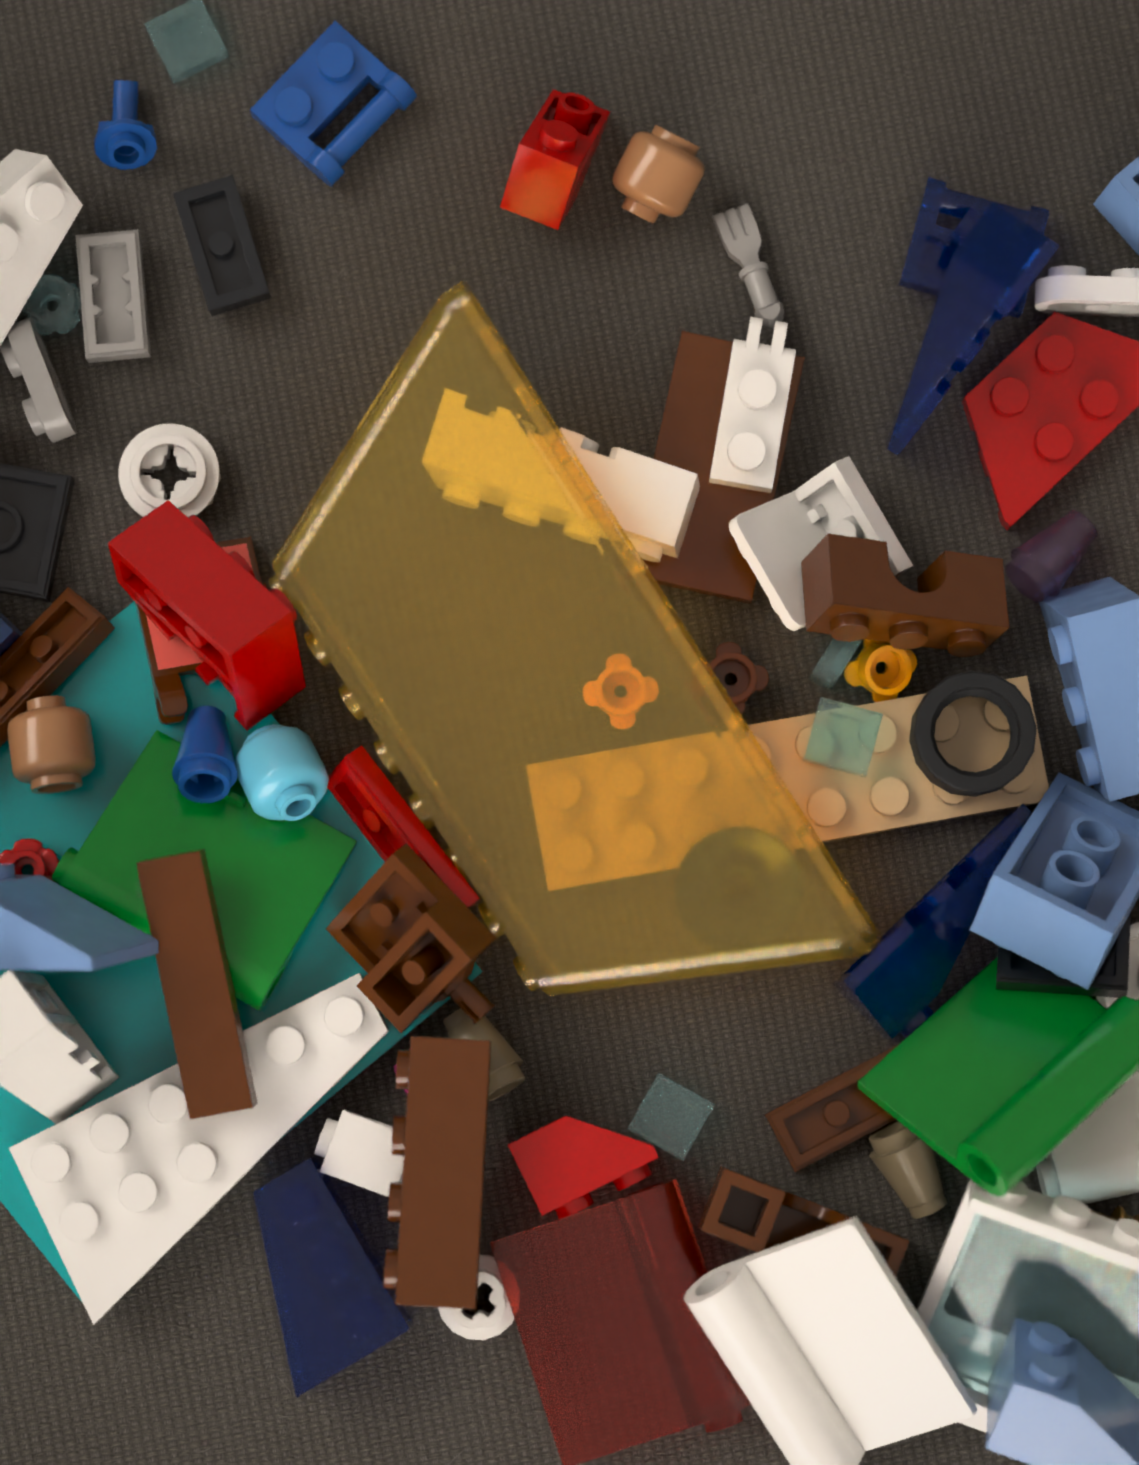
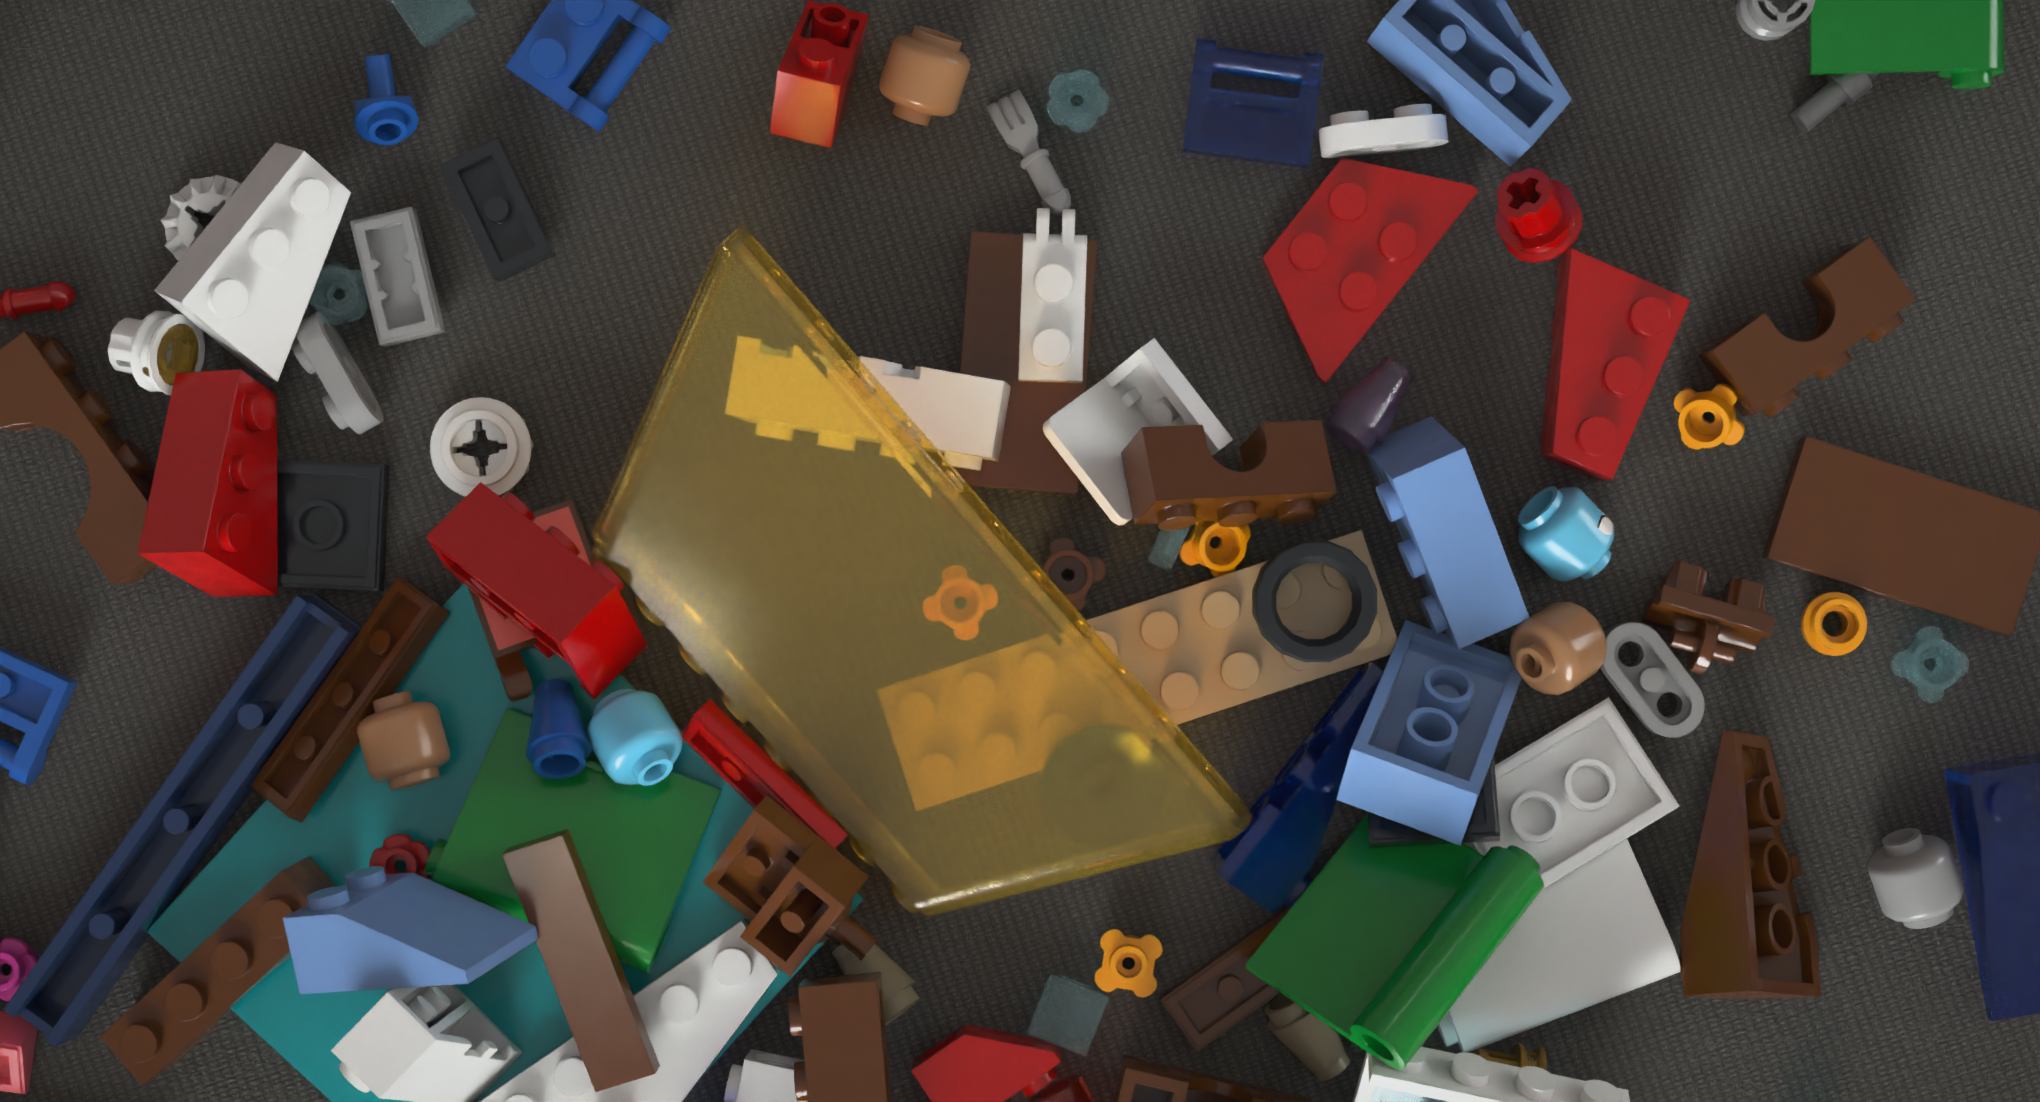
camera: 10 degrees left, 5 degrees up
(755, 1065) = (1116, 949): none -> light orange plate
(810, 206) = (1079, 83): none -> clear light blue plate
(842, 737) = (1186, 621): clear light blue tile -> none
(980, 284) = (1263, 146): clear blue wedge -> none

